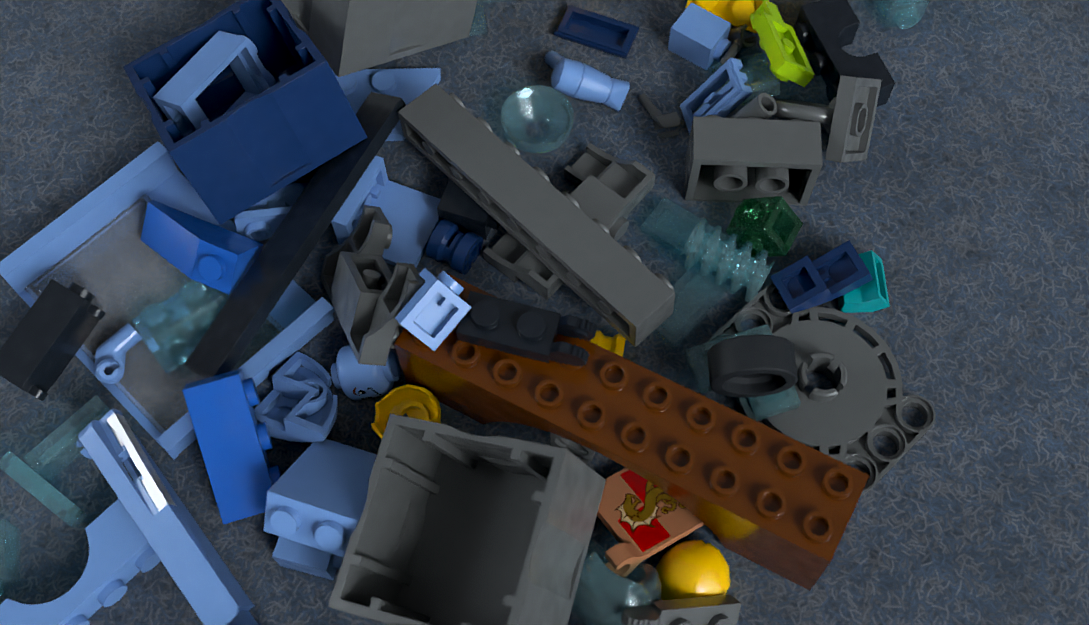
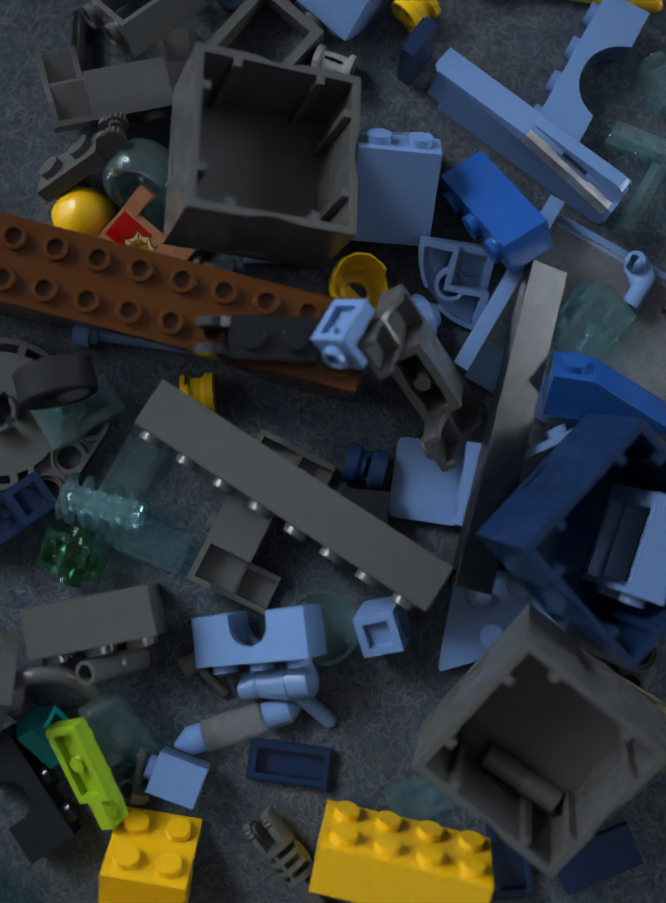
camera: 170 degrees right, 20 degrees up
(484, 96) = (382, 627): none -> medium blue brick
(628, 121) = (290, 635): none -> medium blue arch
(643, 64) = (237, 726): none -> piece
(724, 100) = (125, 701): medium blue tile -> none
(817, 92) = (32, 732): none -> teal piece

